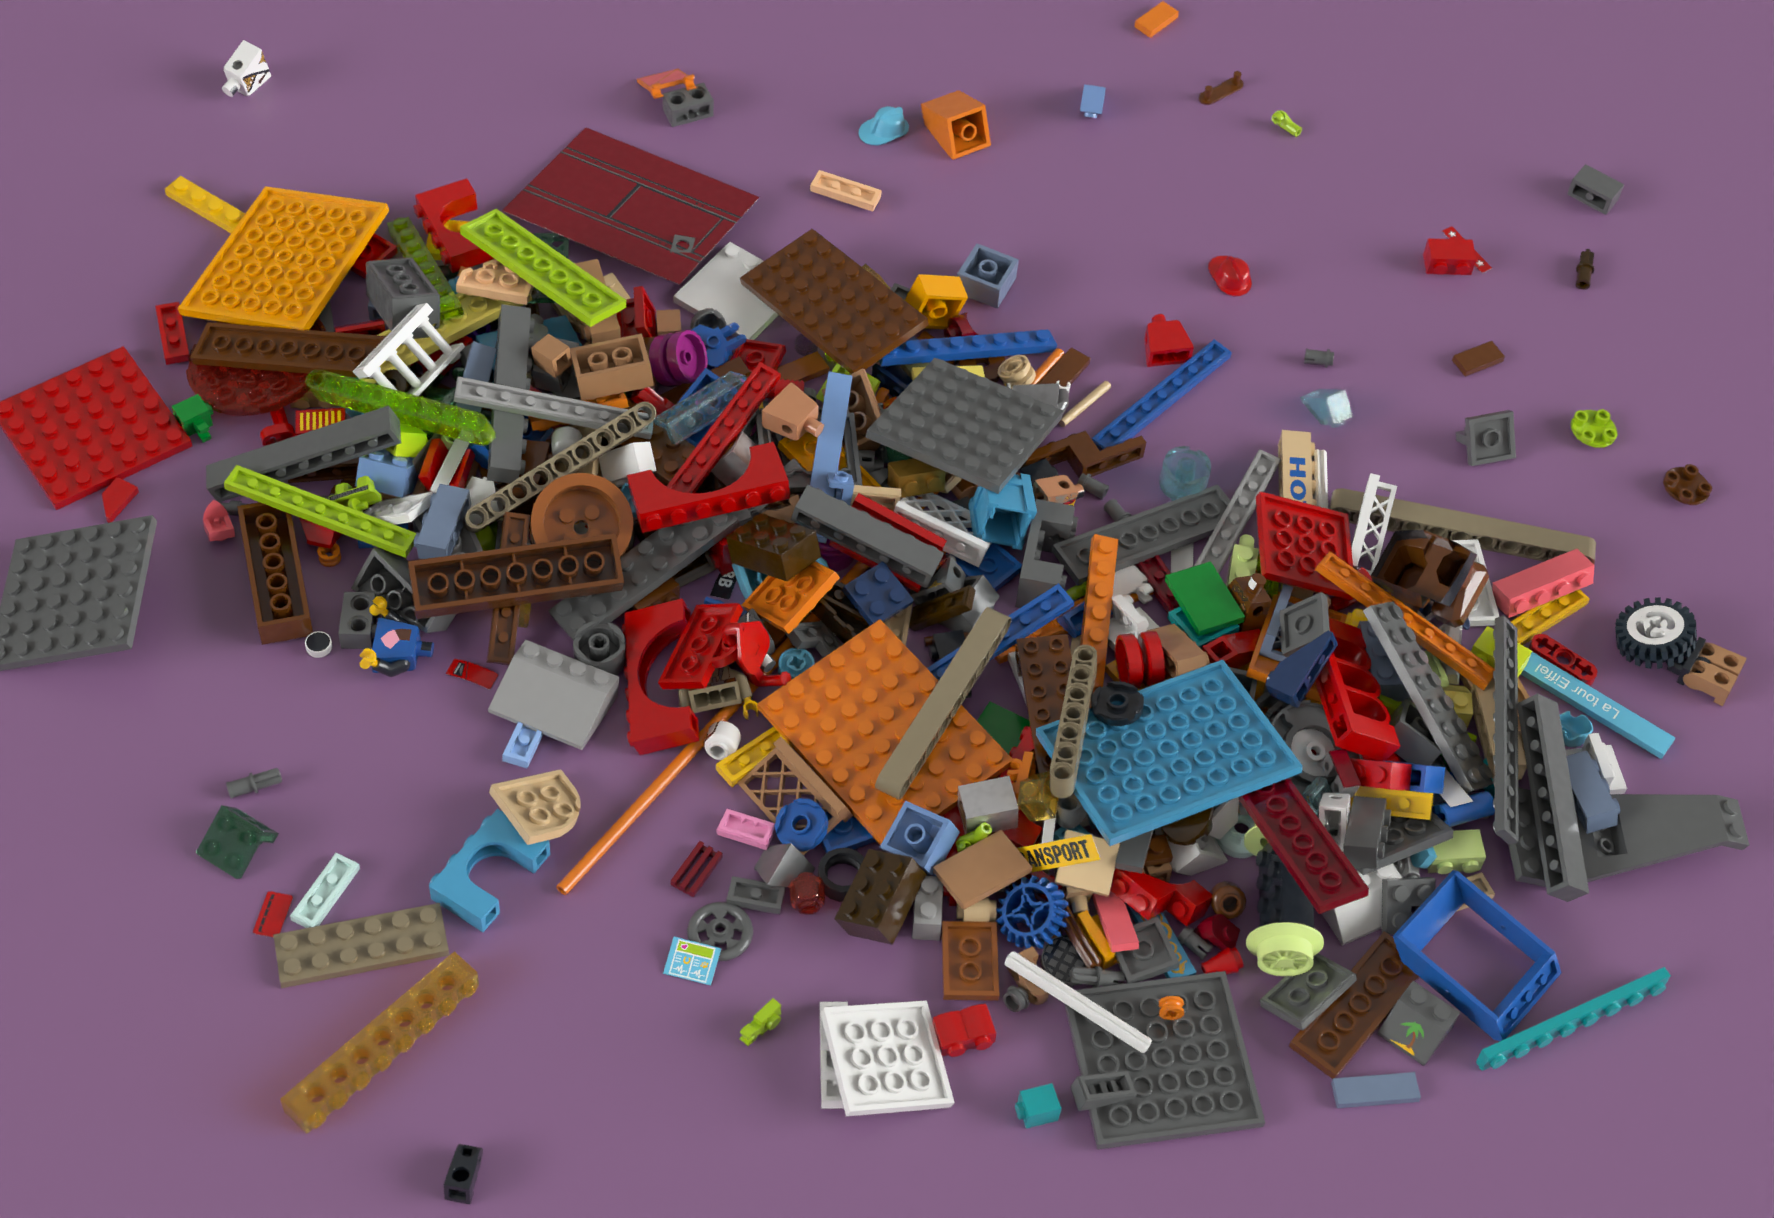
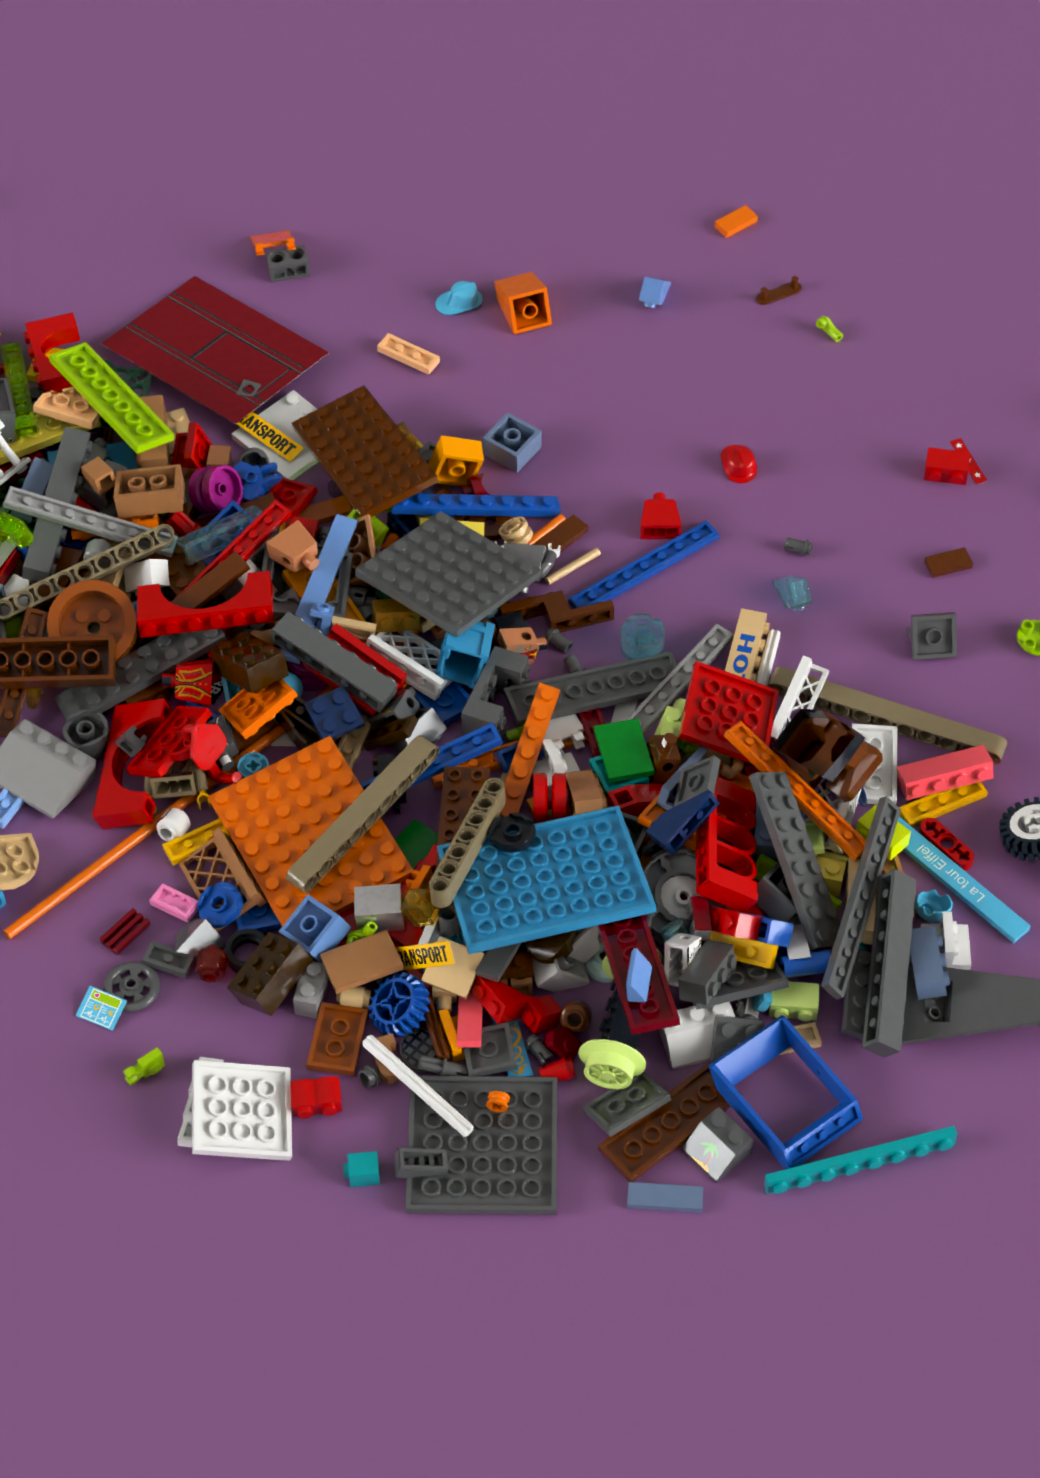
camera: 15 degrees right, 0 degrees up
(655, 652) = (130, 742): none -> dark grey tile
(708, 575) = (191, 681): none -> torso
(711, 461) = (213, 582): none -> reddish brown tile
(719, 295) = (270, 436): none -> yellow sticker
(814, 635) = (272, 743): dark grey plate -> none
(1309, 849) = (638, 977): none -> medium blue slope

